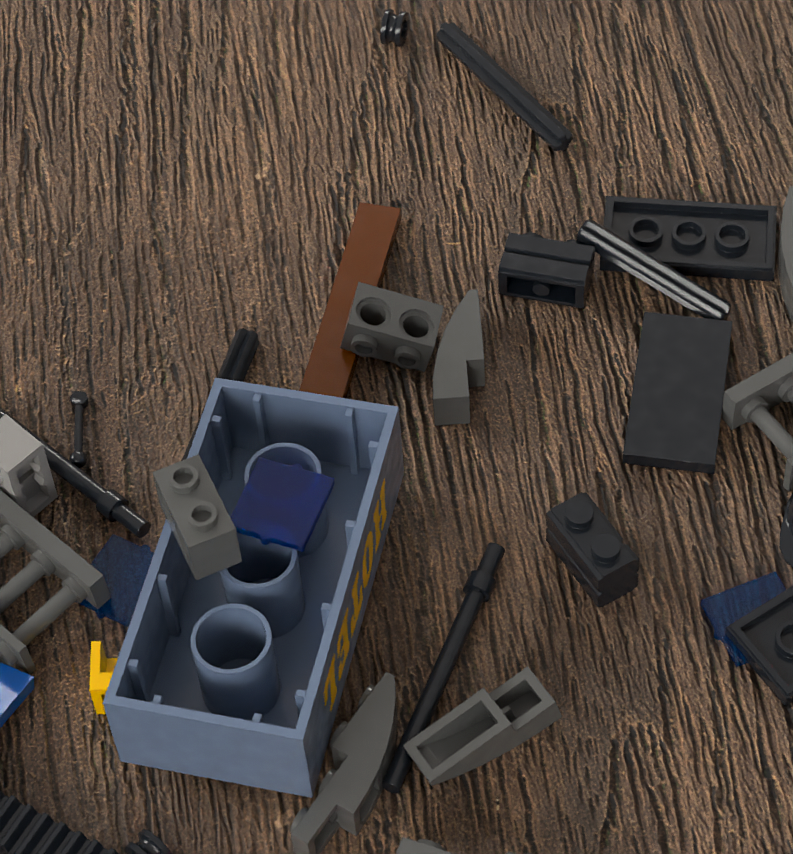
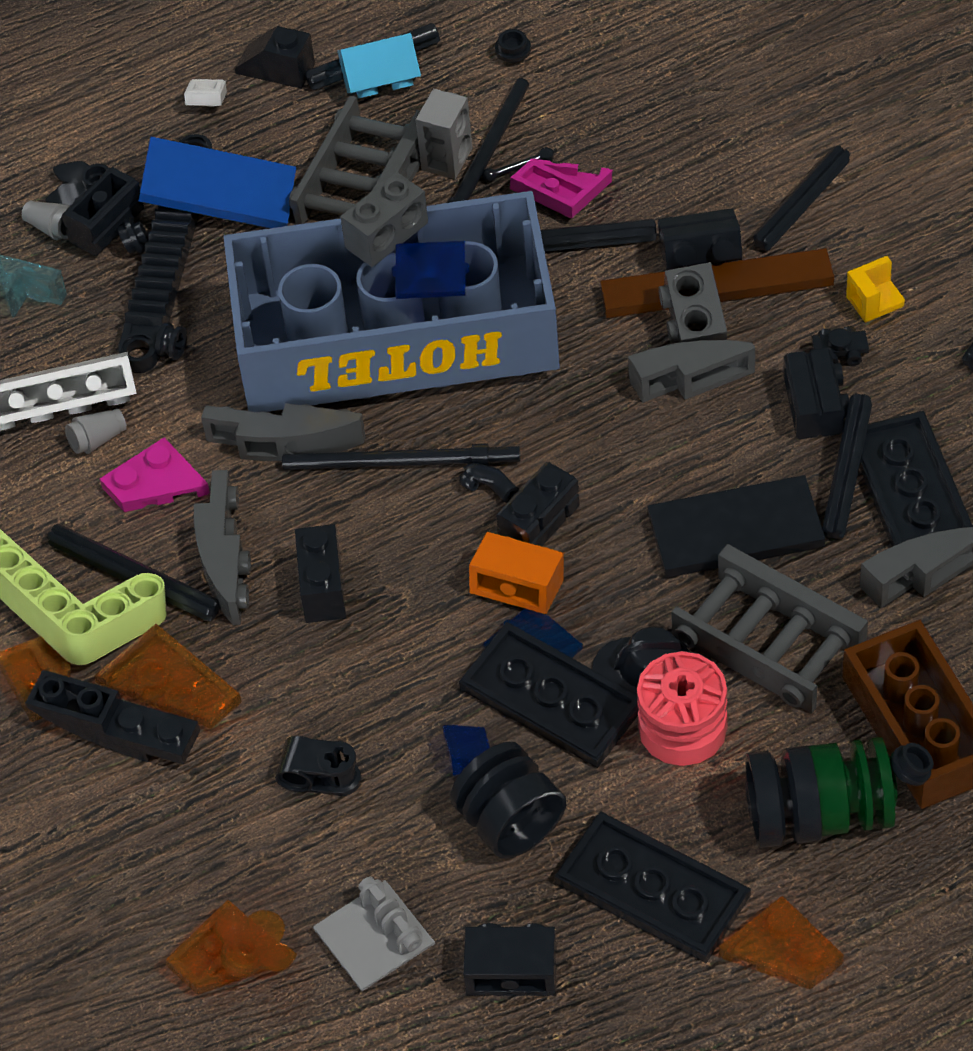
camera: 70 degrees right, 0 degrees up
(139, 397) = (560, 185): none -> dark pink wing
(278, 204) = (801, 198): none -> black axle
(296, 295) = (700, 239): none -> black brick
(437, 188) = (872, 289): none -> yellow panel
(483, 728) = (352, 497): dark grey slope -> none
(487, 230) = (842, 342): none -> black piece
(515, 585) = (490, 476): none -> black arm
(587, 788) = (320, 573): none -> black brick
(668, 595) = (516, 572): none -> orange brick

